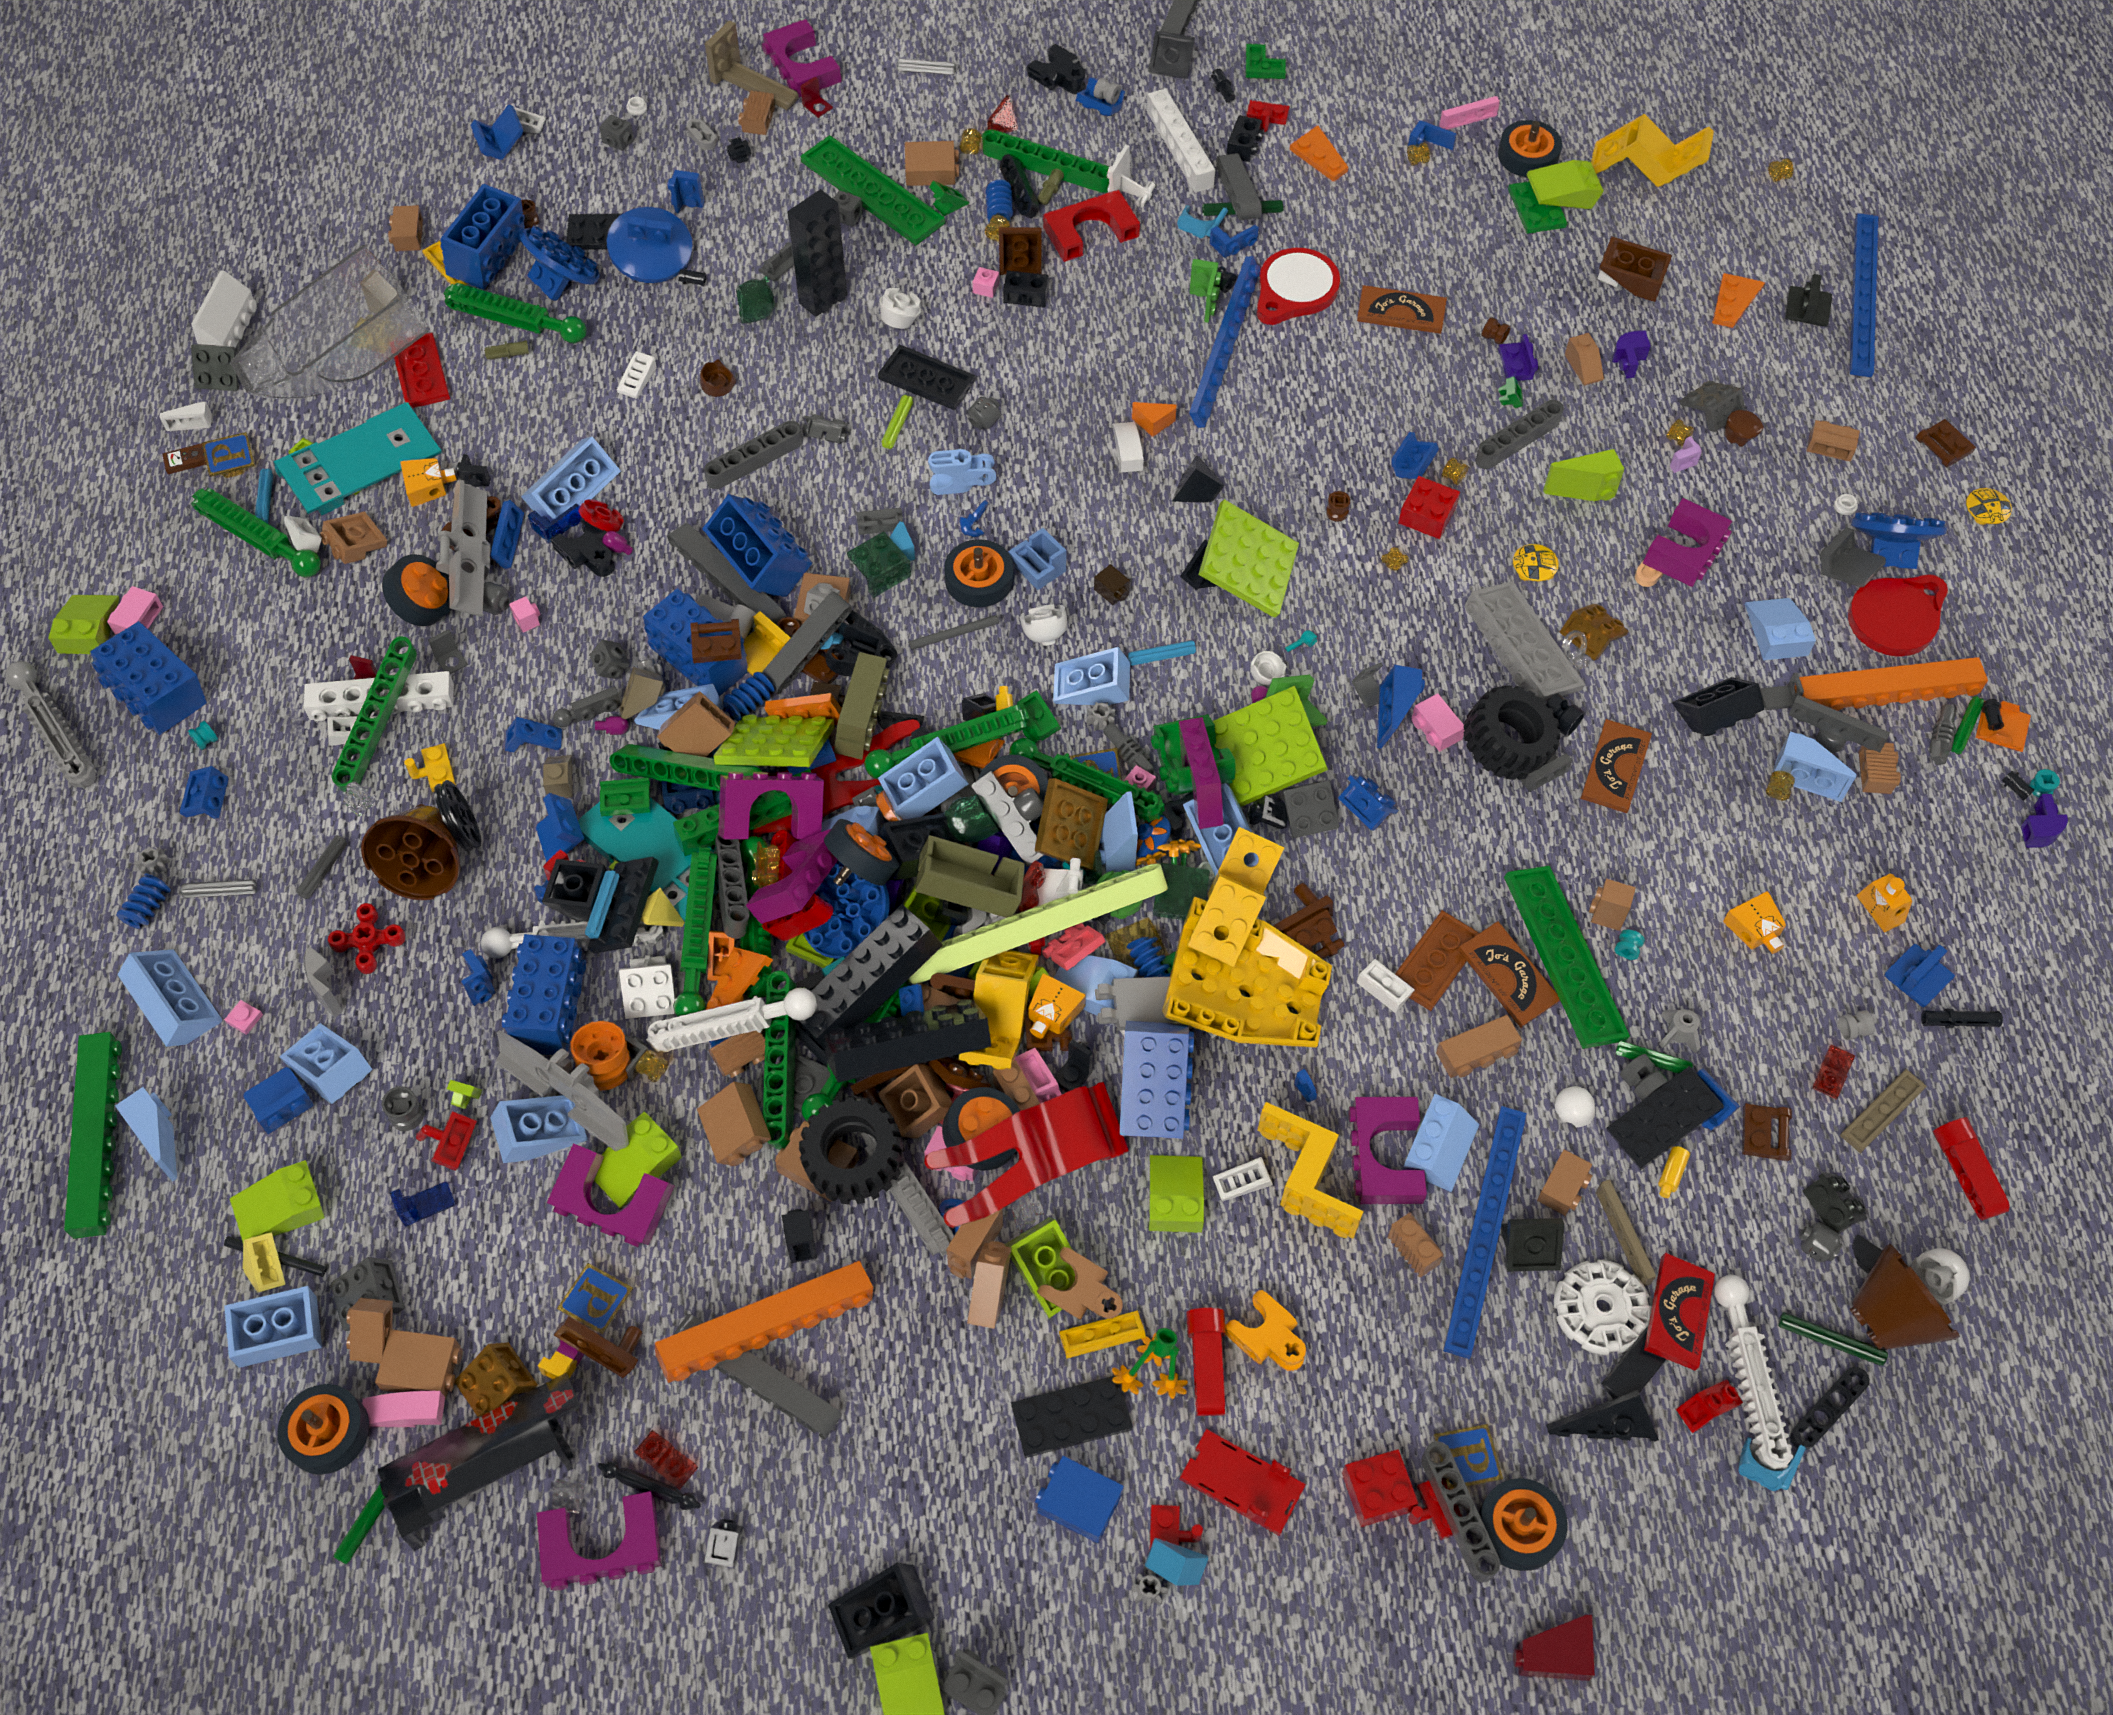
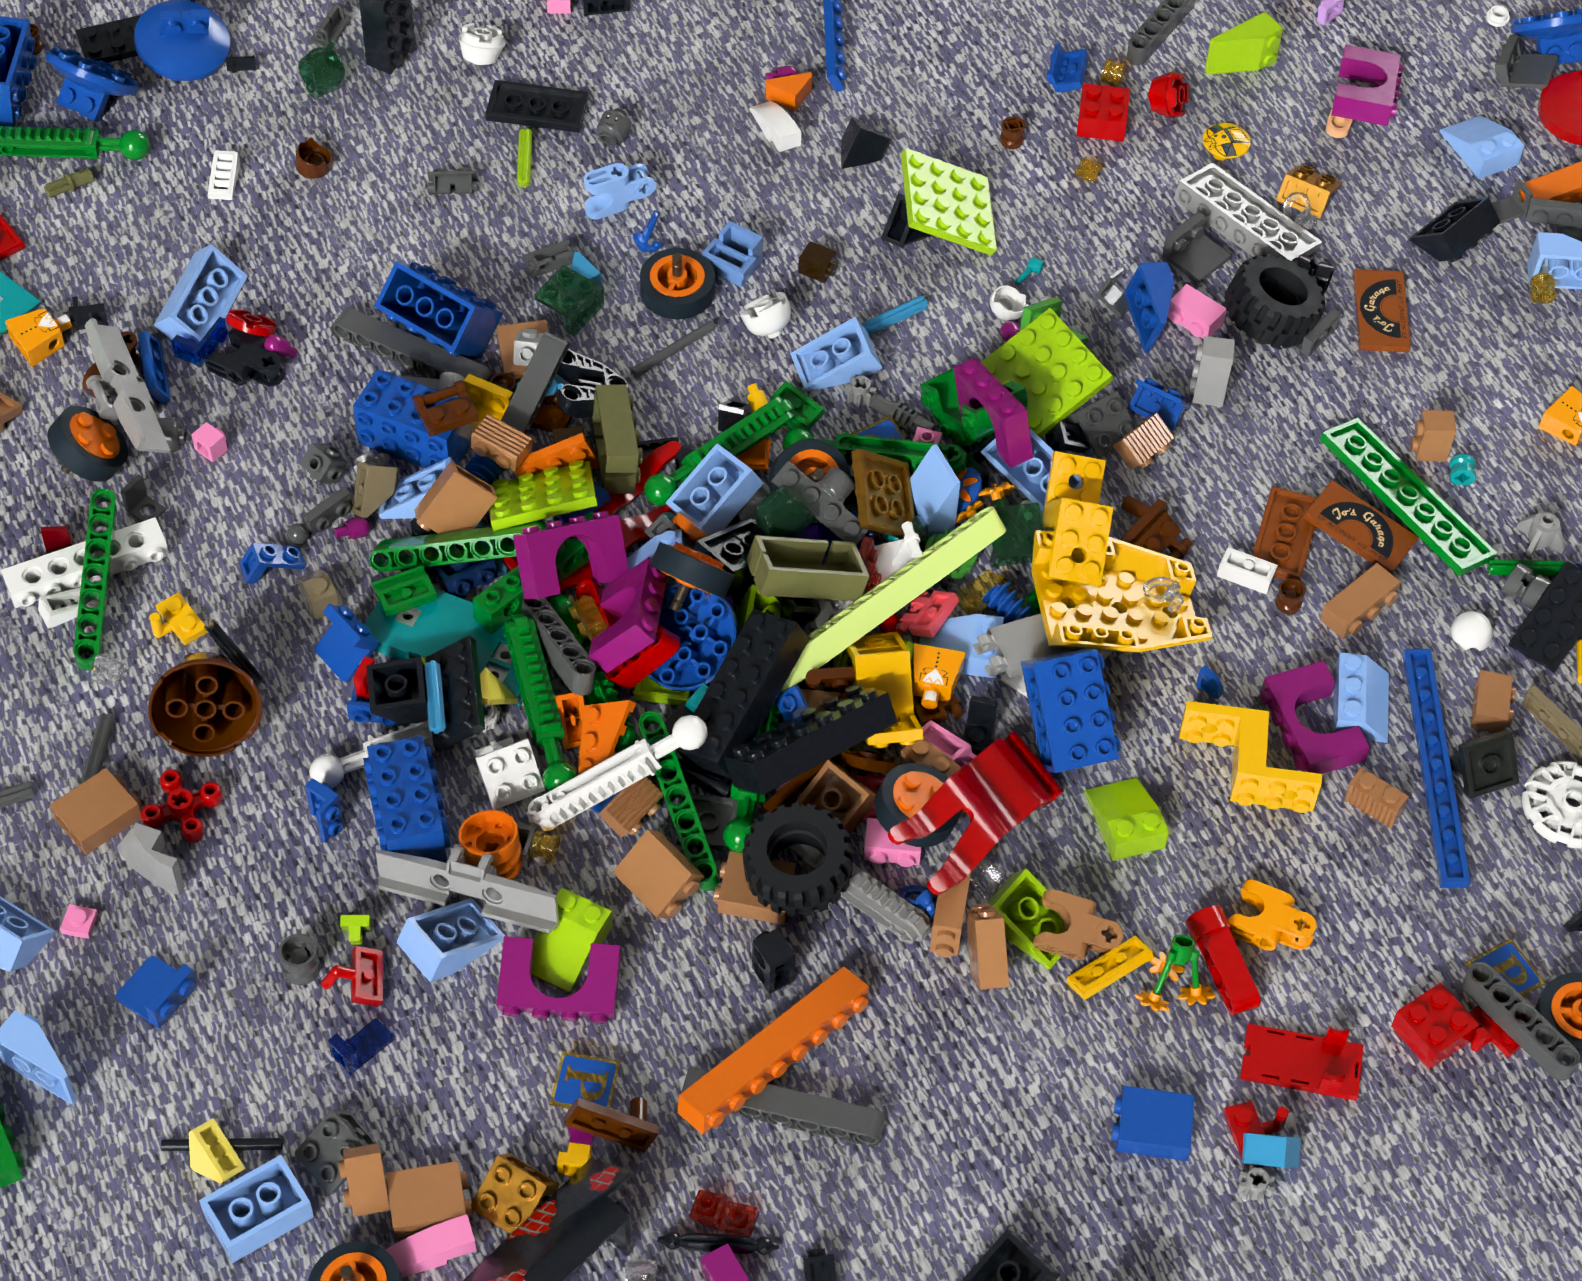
camera: 20 degrees left, 5 degrees down
(277, 1203) = (205, 1088): lime slope -> none
(295, 922) = (96, 810): none -> medium nougat brick
(326, 1063) = (194, 937): light blue slope -> none
(753, 454) = (387, 225): dark grey beam -> none
(758, 683) = (501, 443): none -> medium nougat brick
(1071, 1416) = (1111, 1052): black plate -> none
(1153, 398) = (781, 72): none -> magenta cylinder
(1255, 1184) = (1196, 768): white slope -> none
(1297, 992) = (1171, 594): none -> clear piece
(1338, 835) = (1144, 441): none -> medium nougat brick
(1417, 1018) = (1290, 596): none -> reddish brown wheel
(1423, 785) = (1212, 371): none -> light grey brick
(1461, 661) = (1193, 251): none -> dark grey bracket
(1496, 505) = (1168, 94): none -> red cone

